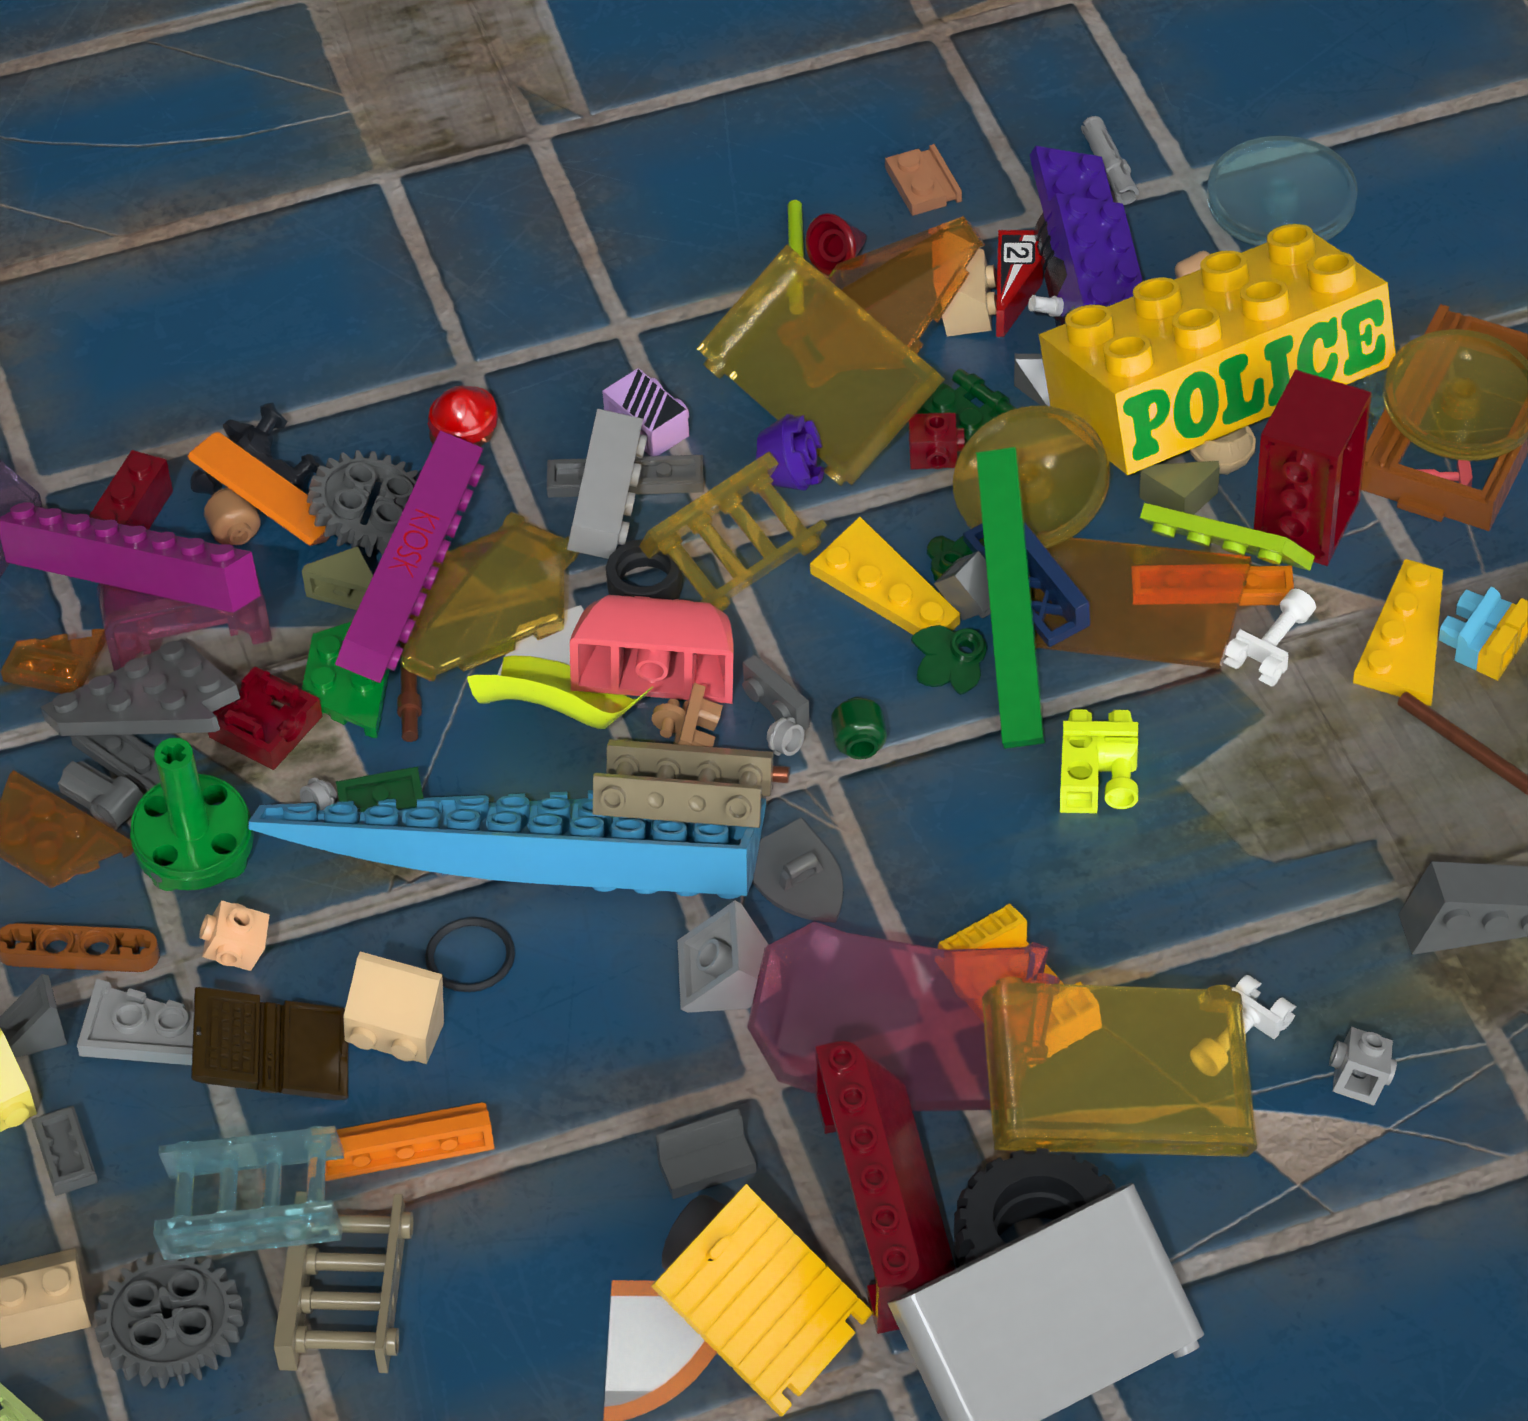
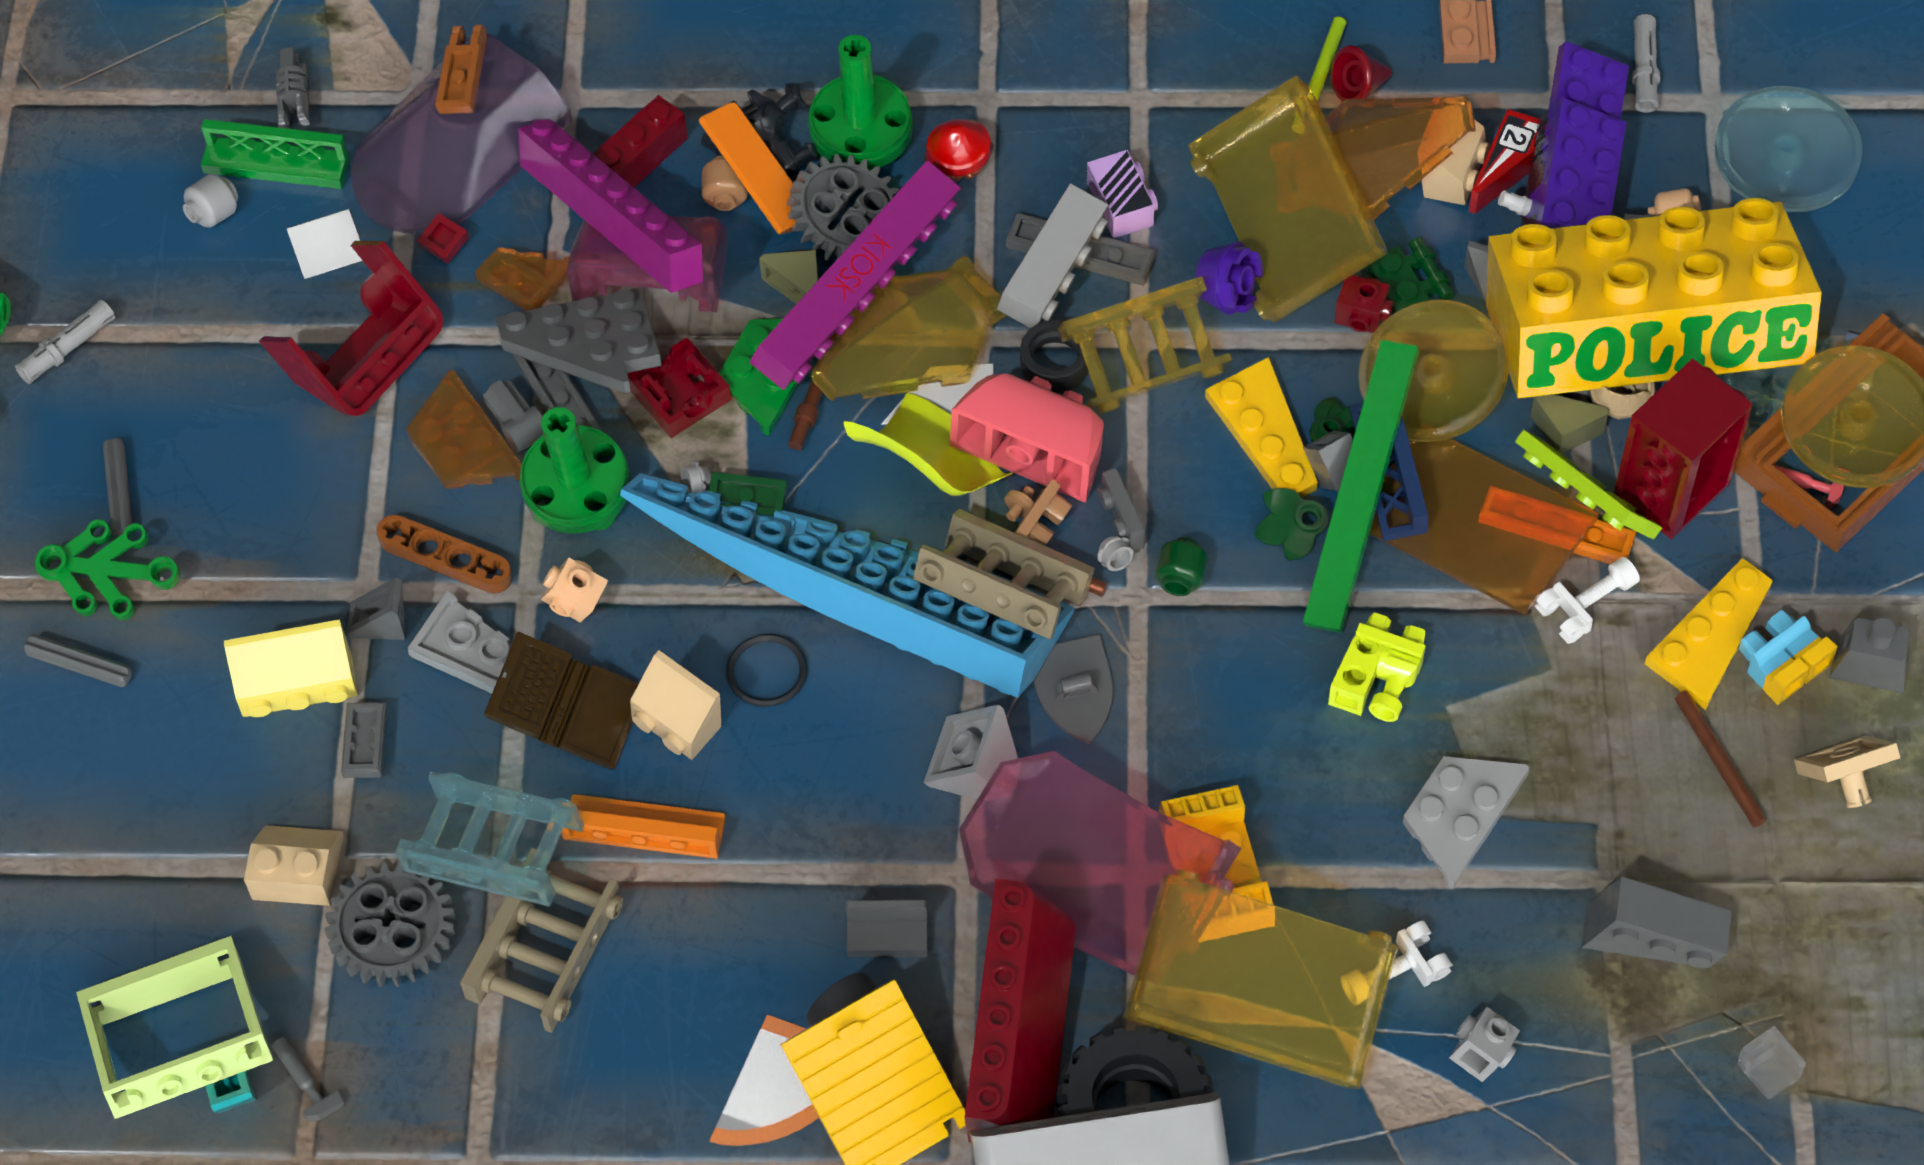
camera: 20 degrees right, 10 degrees up
(348, 406) = (861, 111): none -> green piece
(1236, 865) = (1461, 809): none -> light grey wing

